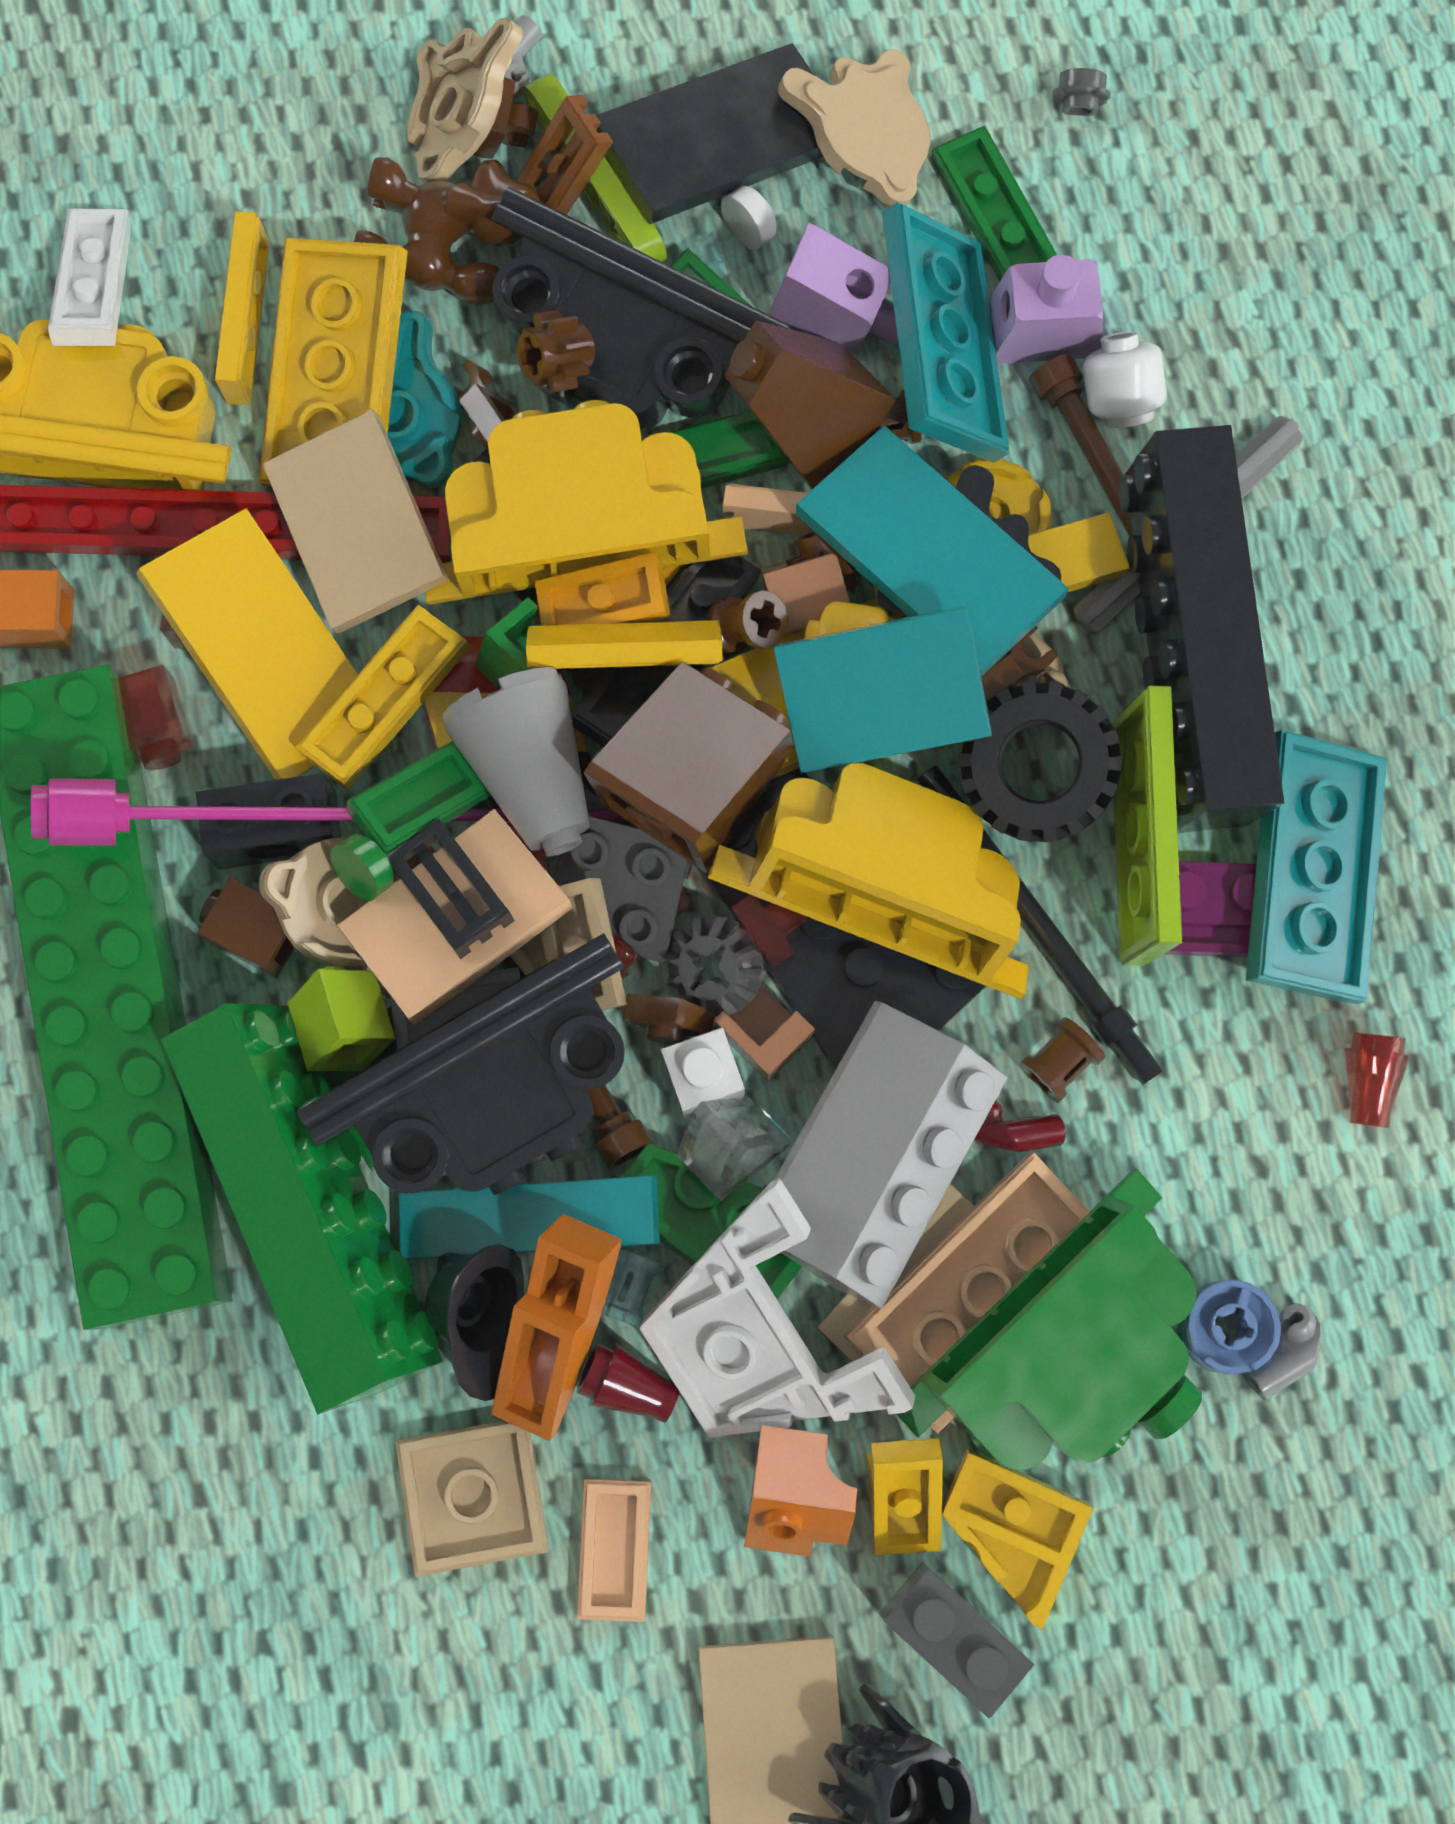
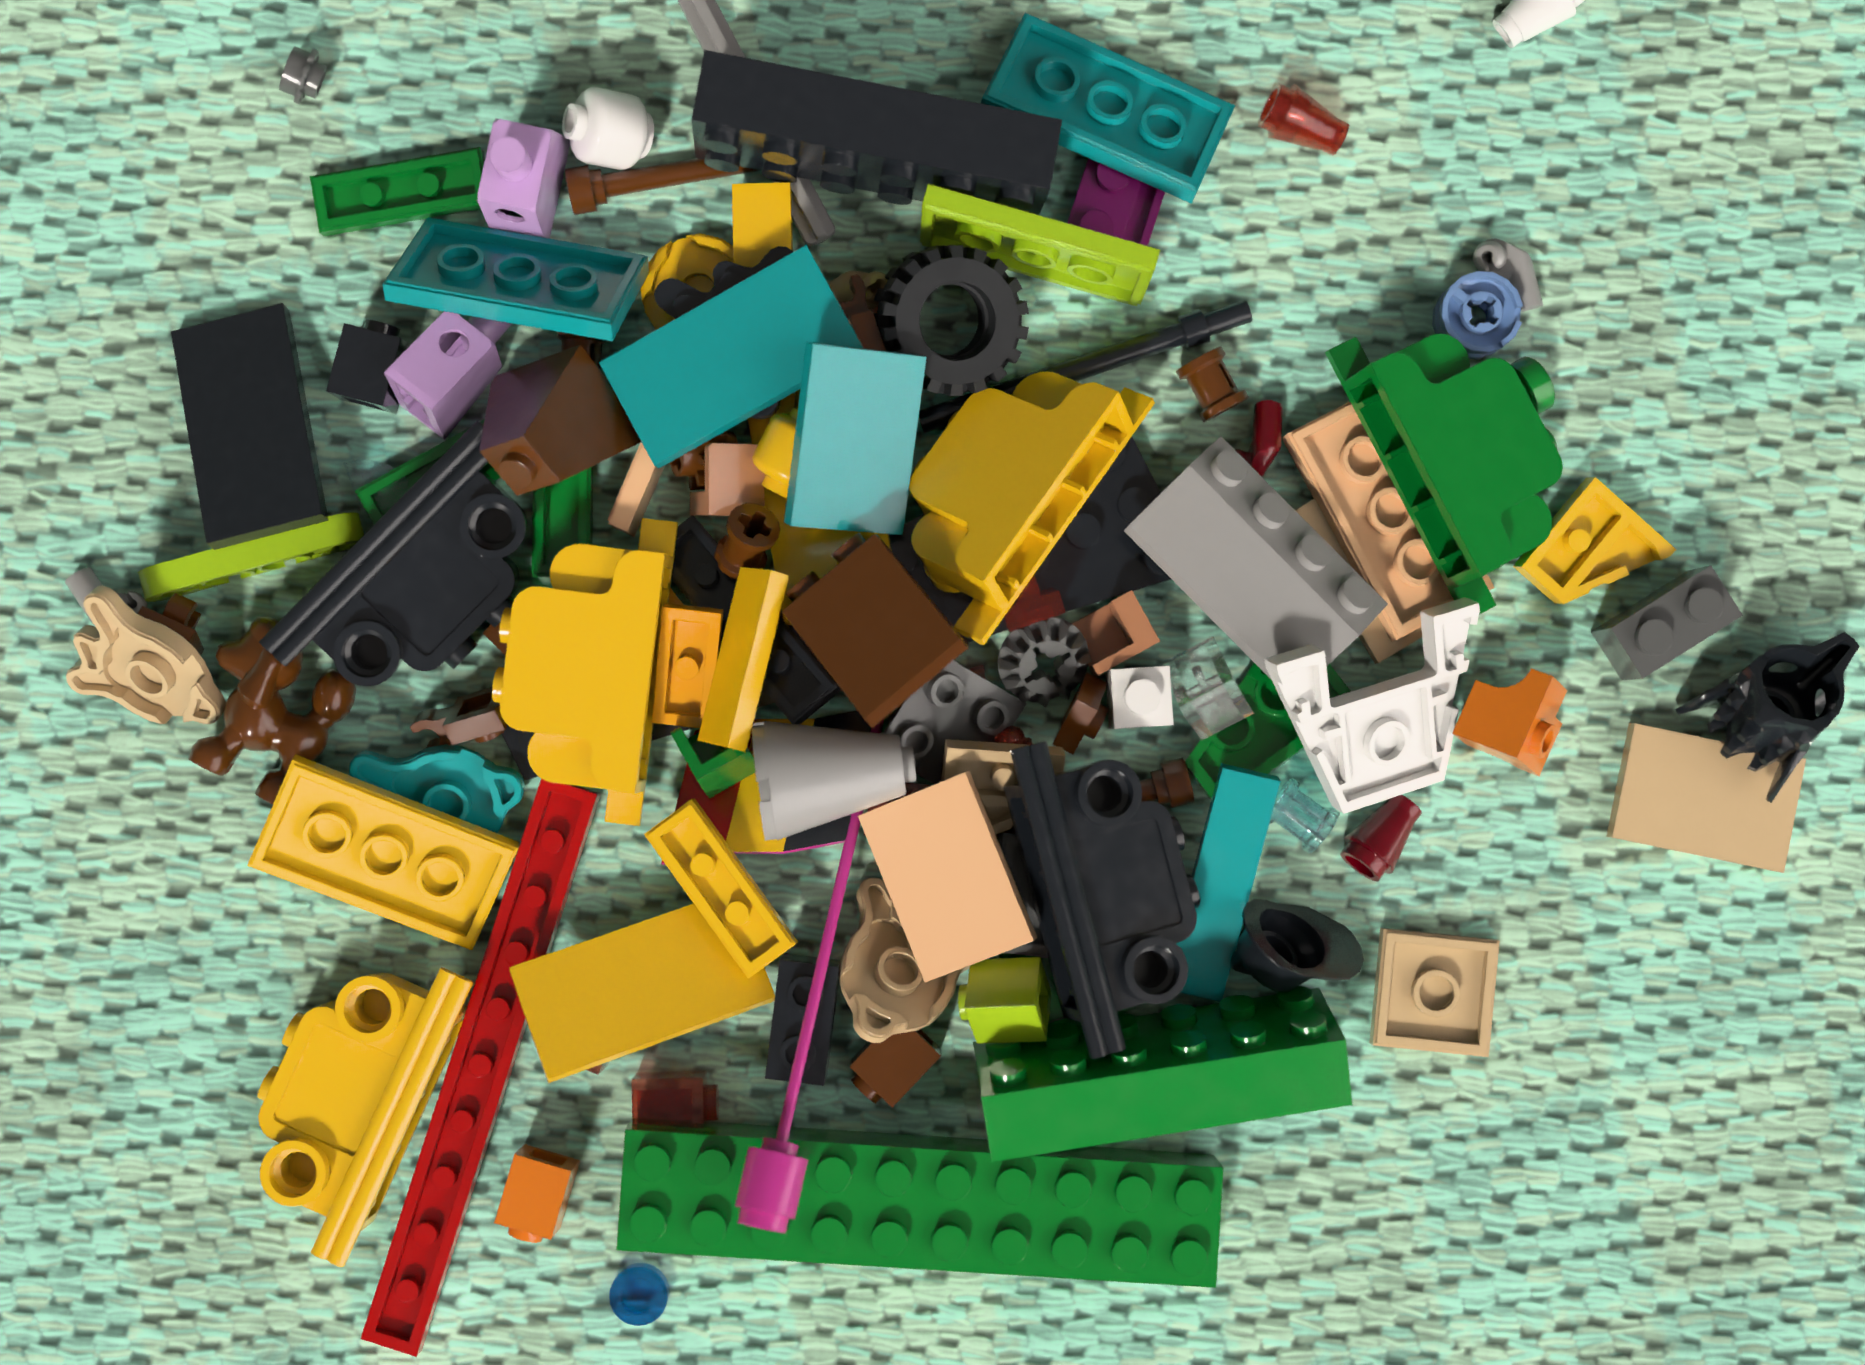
camera: 70 degrees left, 10 degrees up
(90, 278) = (226, 1058): white tile -> none
(242, 309) = (295, 922): yellow tile -> none
(355, 522) = (545, 871): tan tile -> none
(362, 867) = (880, 946): green tile -> none
(416, 796) = (830, 883): green tile -> none
(477, 926) = (971, 857): black tile -> none
(554, 1325) = (1322, 883): orange slope -> none
(555, 351) = (441, 643): reddish brown gear -> none
(578, 161) = (226, 555): dark orange tile -> none
(614, 1550) = (1511, 884): light nougat tile -> none
(749, 216) = (340, 424): white tile -> none
(821, 206) = (361, 364): none -> black brick
(865, 122) = (276, 286): tan tile -> none
(906, 1496) = (1538, 629): yellow slope -> none

